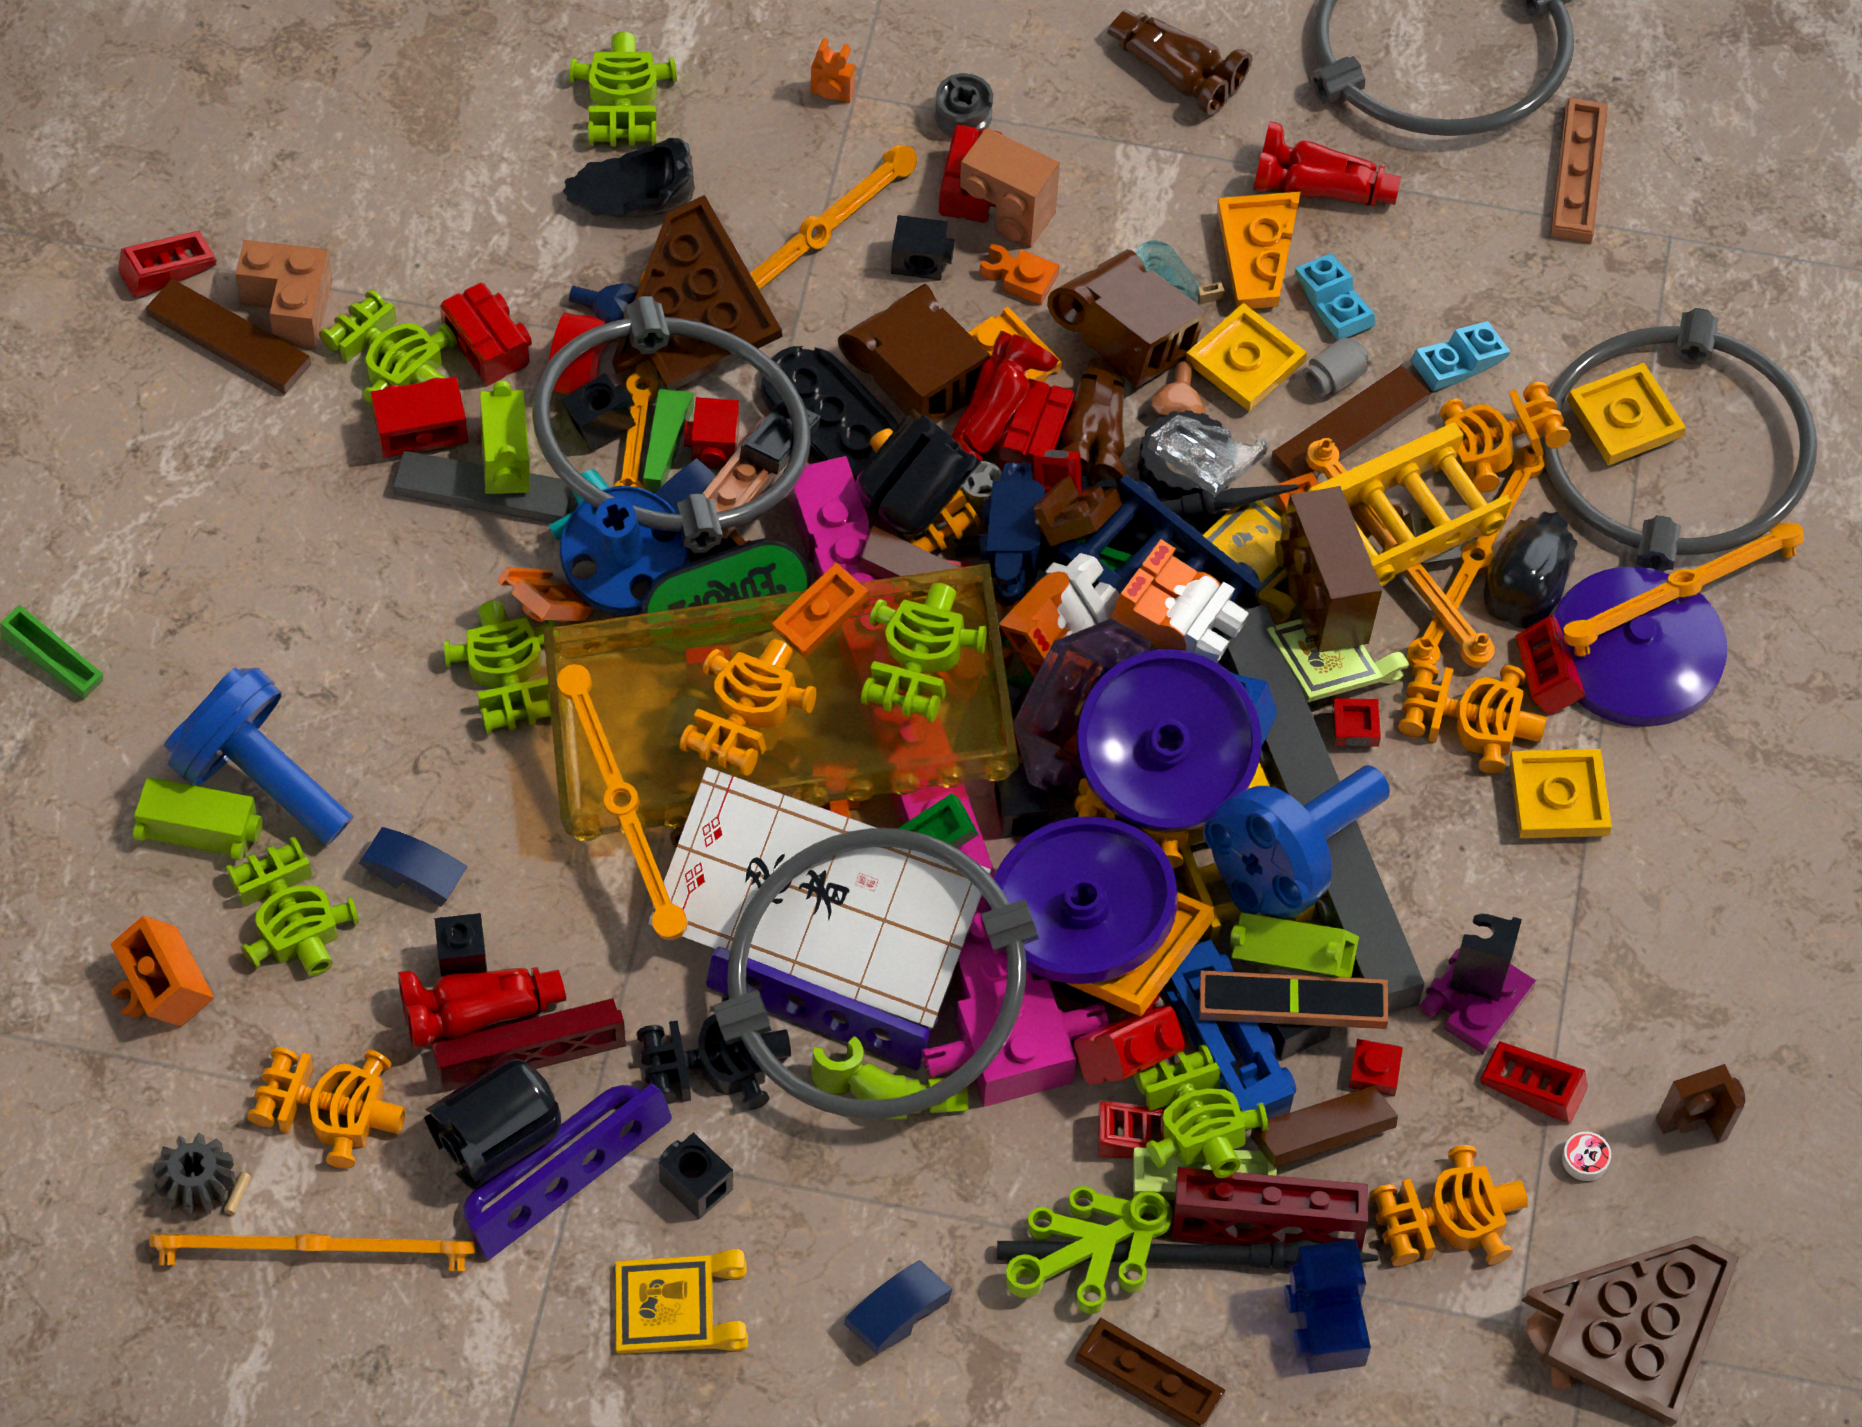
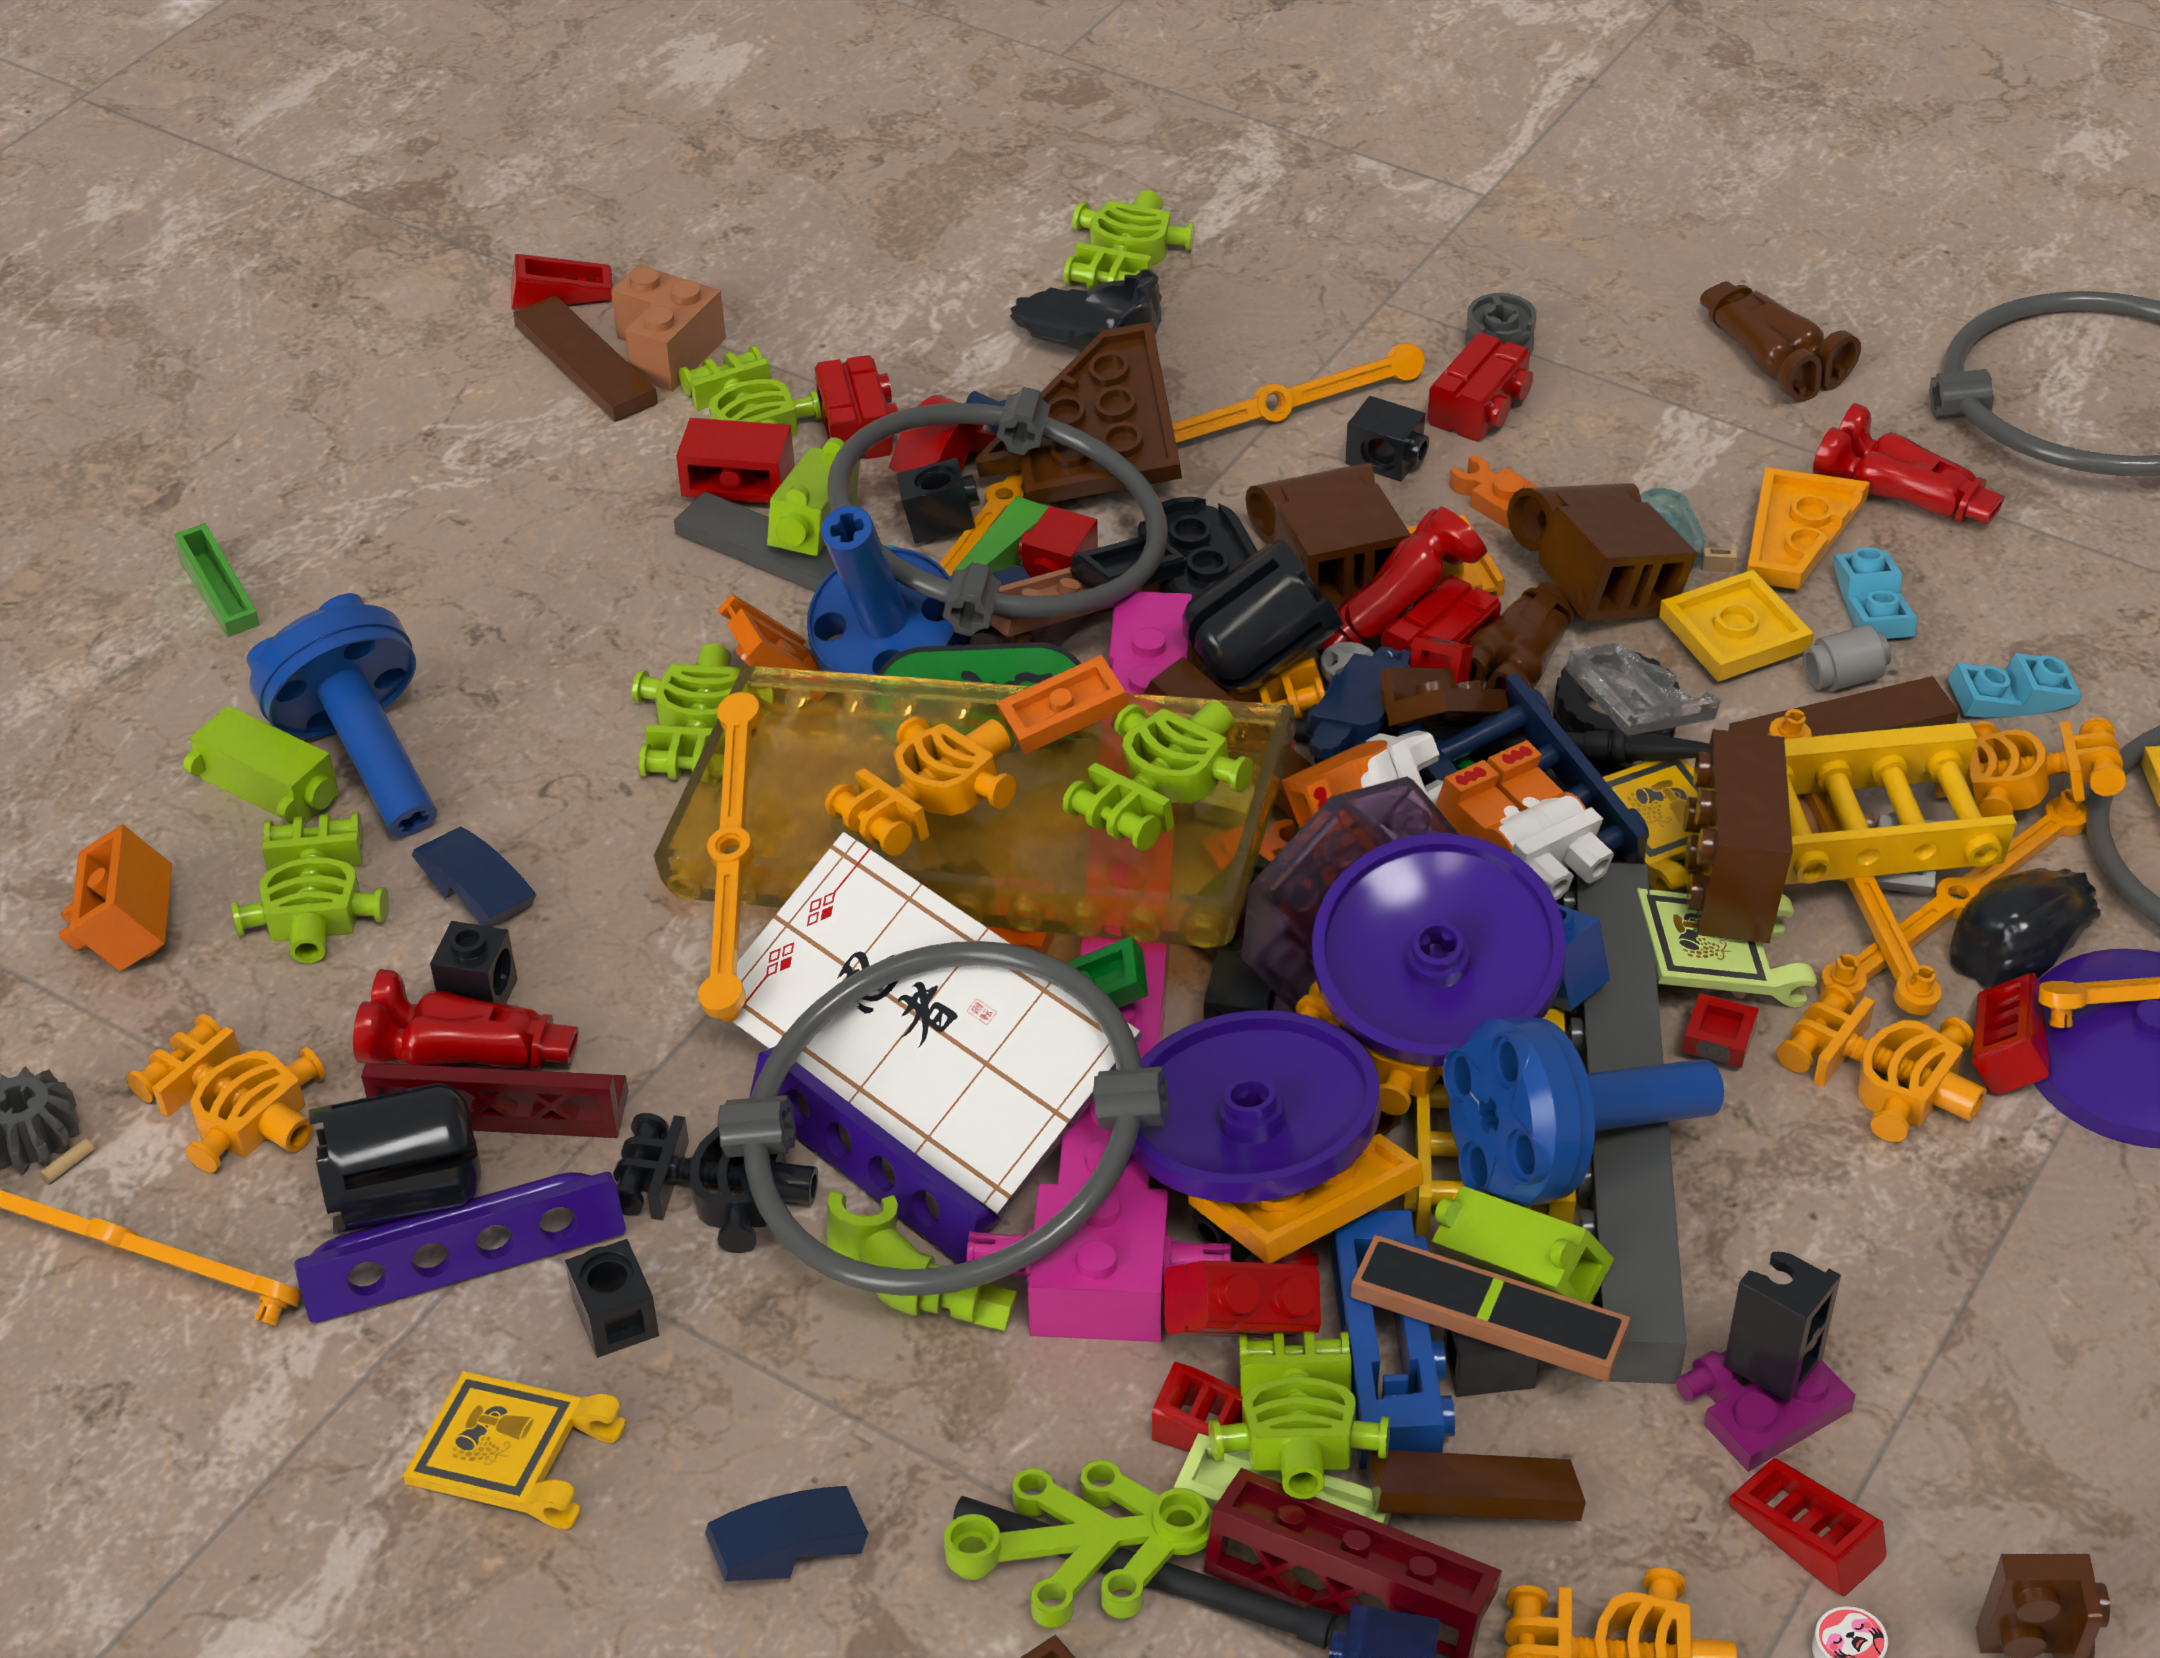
camera: 25 degrees right, 15 degrees down
(832, 74) = (1359, 269): orange plate -> none
(1016, 181) = (1523, 390): nougat brick -> none
(1178, 395) = (1639, 639): nougat rock -> none
(1376, 1066) = (1586, 1437): red plate -> none
(1560, 793) = (1974, 1182): yellow plate -> none

